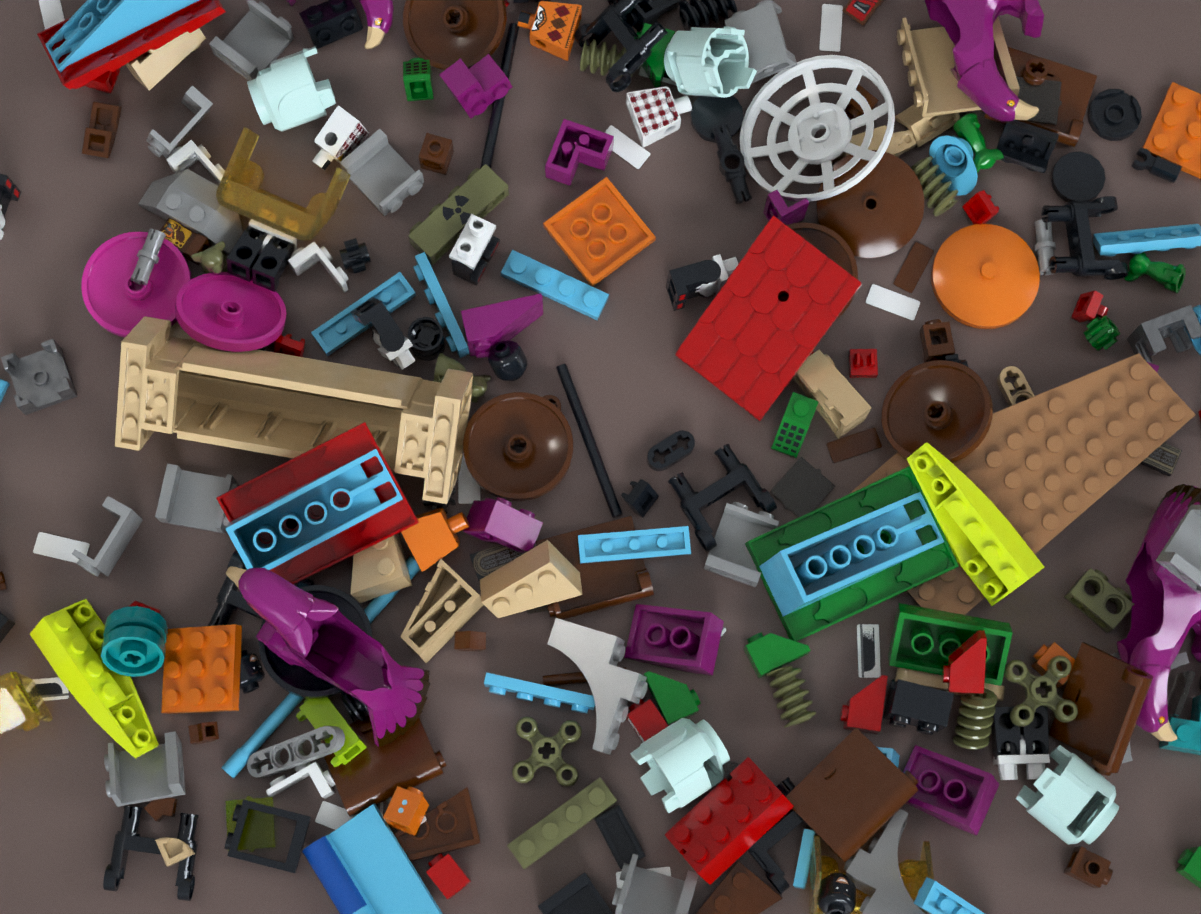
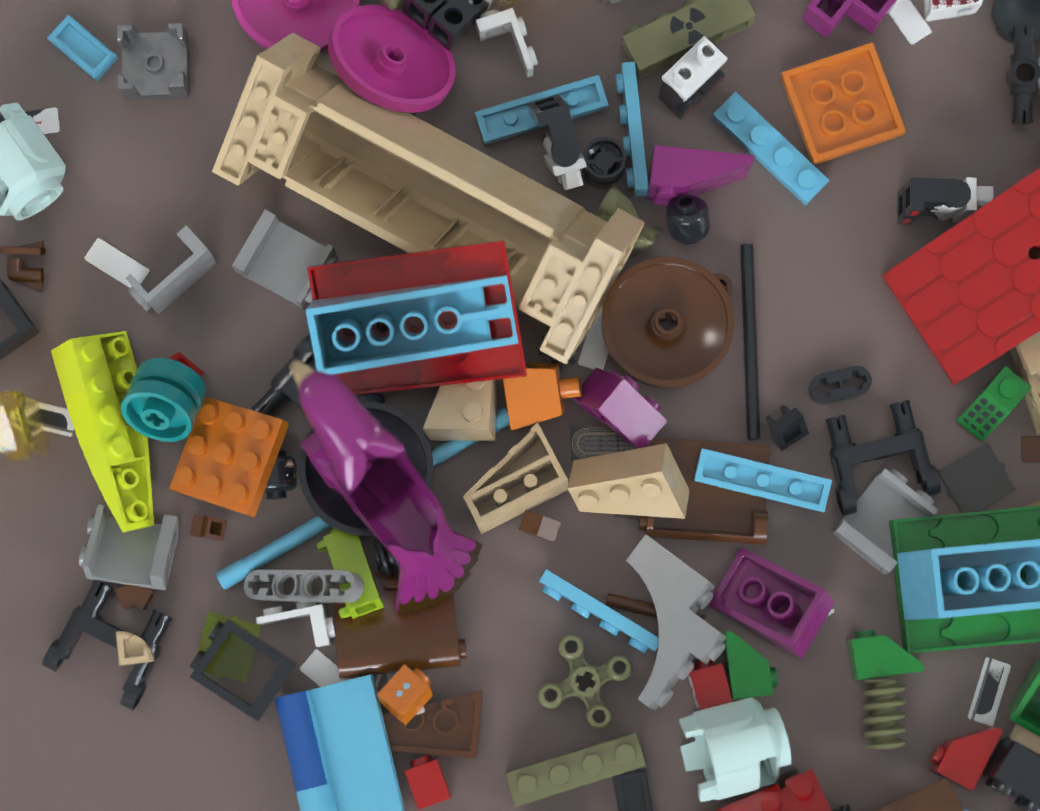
camera: 20 degrees right, 5 degrees up
(288, 346) = (444, 120): red tile -> none
(355, 255) = (553, 39): black gear -> none

